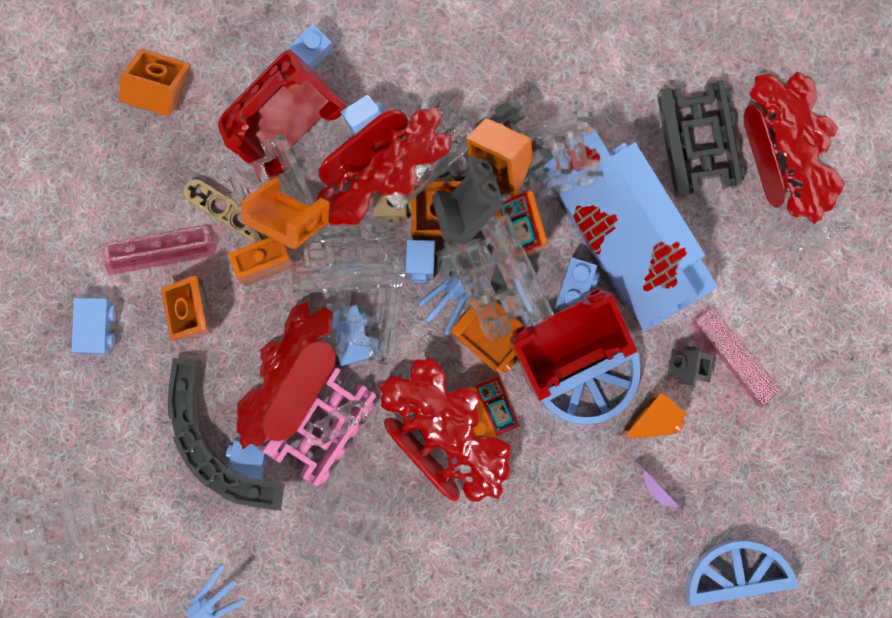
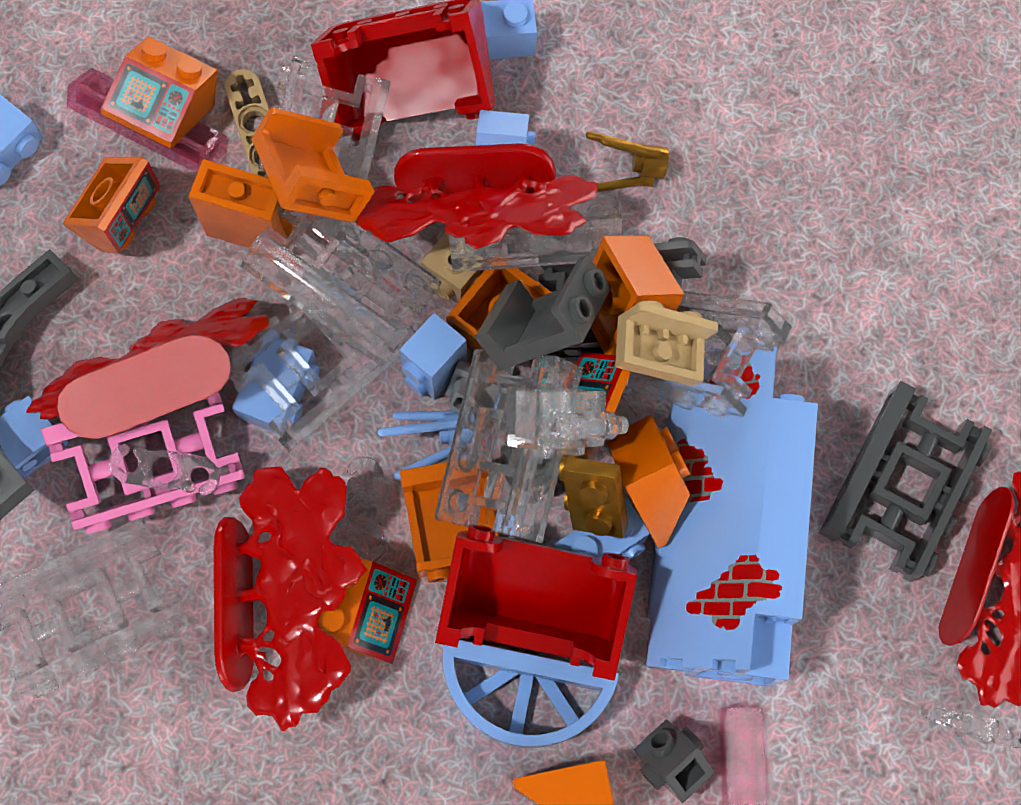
camera: 40 degrees right, 10 degrees down
(159, 230) = (160, 92): none -> slope
(440, 65) = (647, 160): none -> pearl gold plant
(522, 251) = (559, 420): none -> clear brick
(540, 172) = (663, 342): none -> tan bracket
(558, 270) = (594, 496): none -> pearl gold bracket
(577, 237) = (652, 475): none -> orange slope

